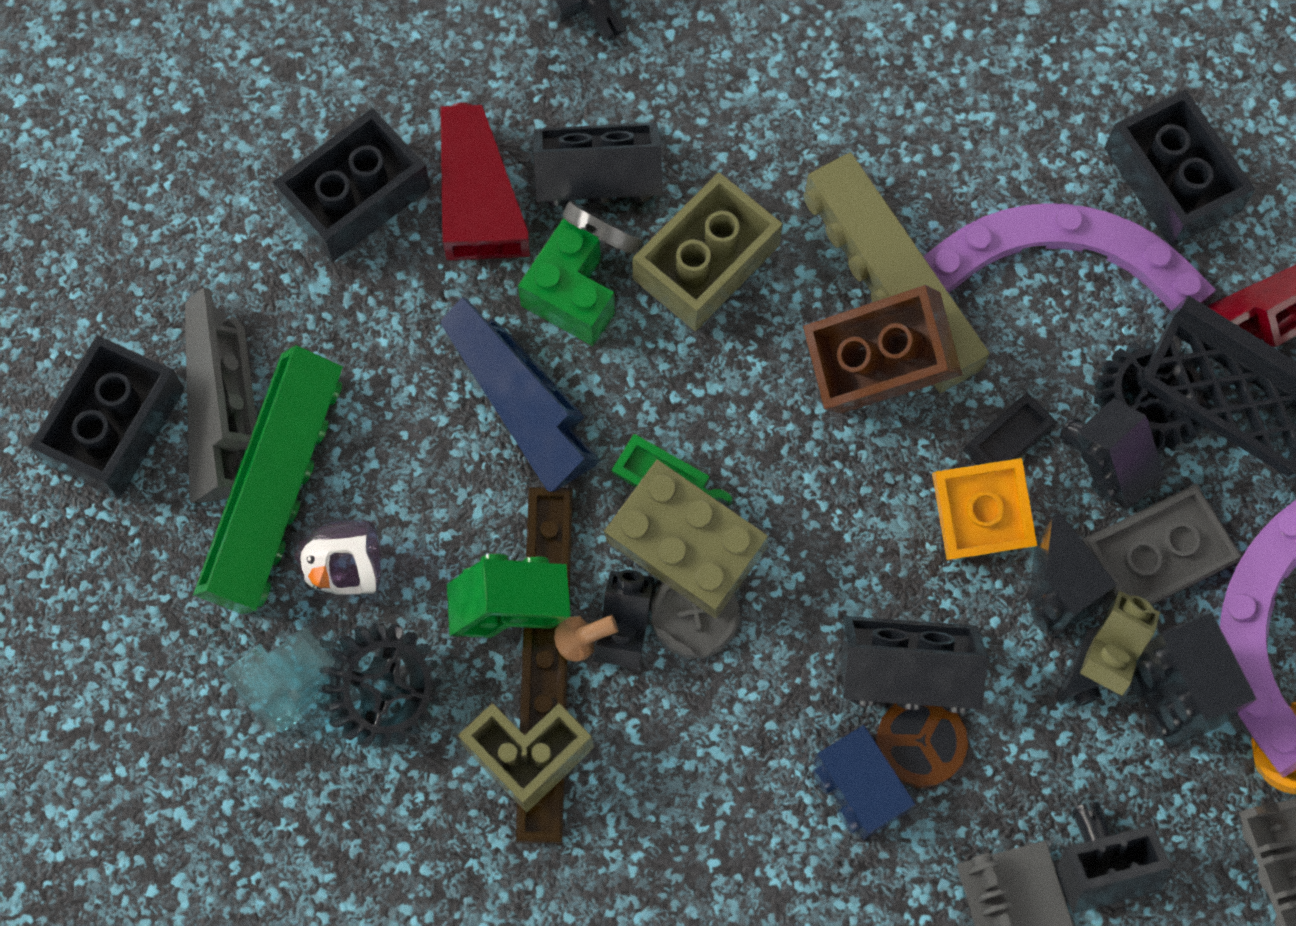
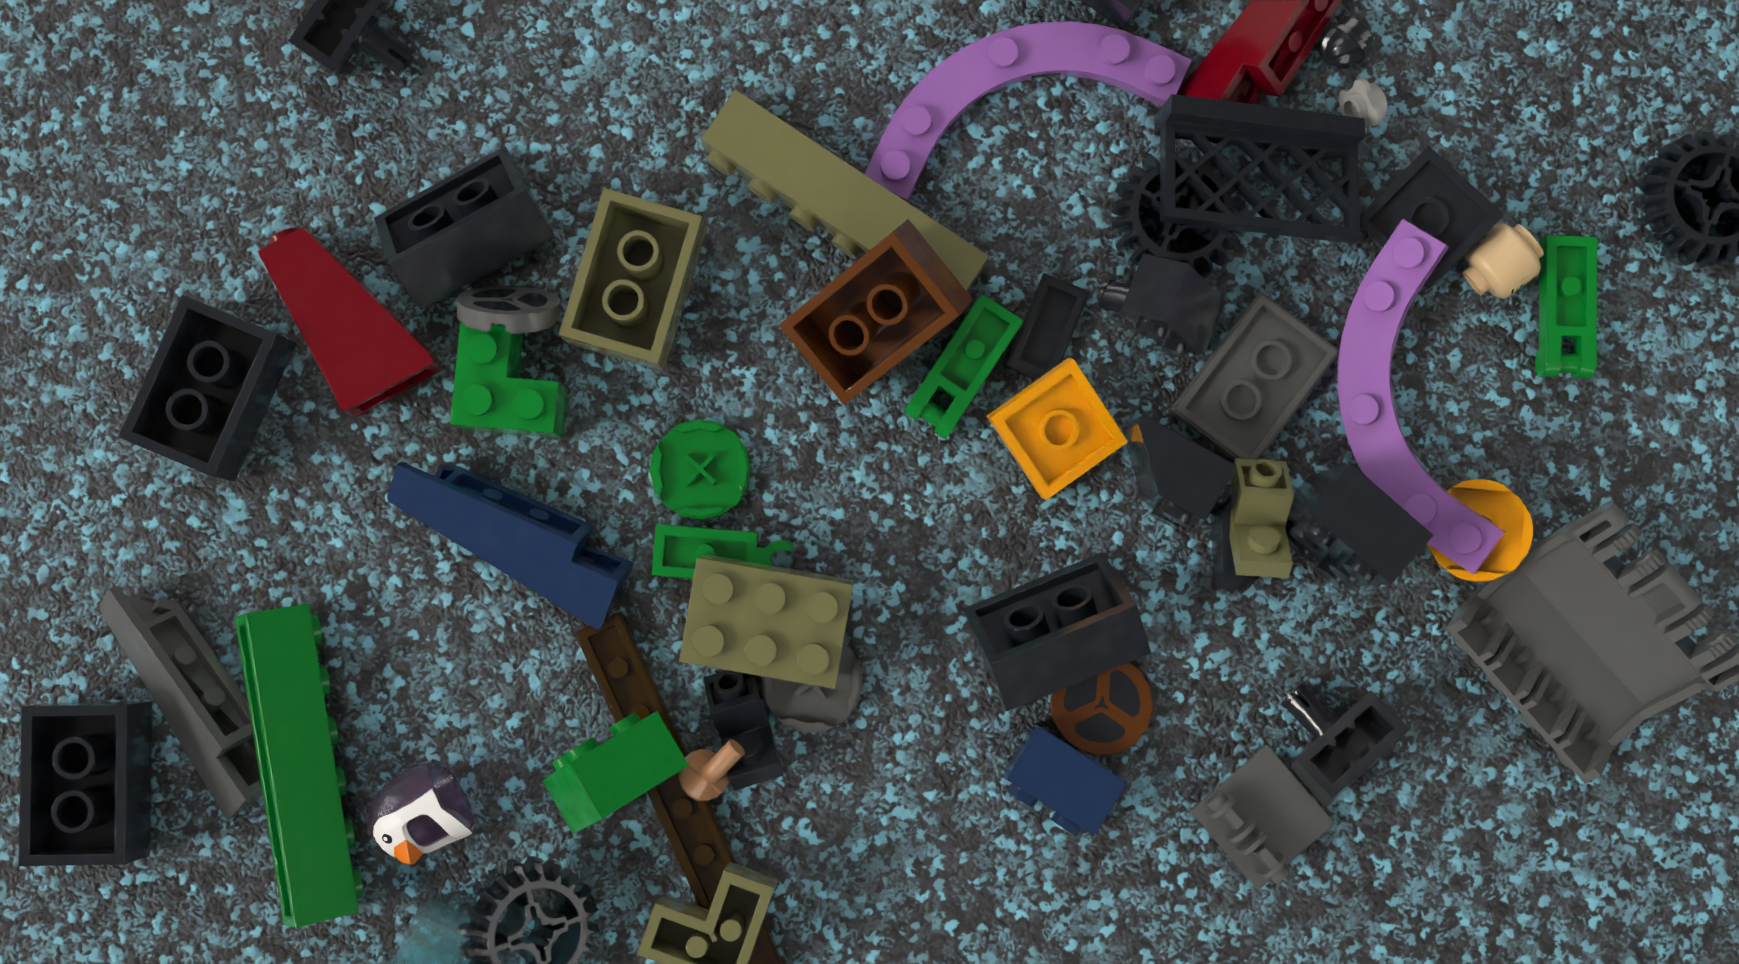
camera: 30 degrees left, 15 degrees up
(687, 415) = (700, 469): none -> green tile
(932, 430) = (964, 364): none -> green plate

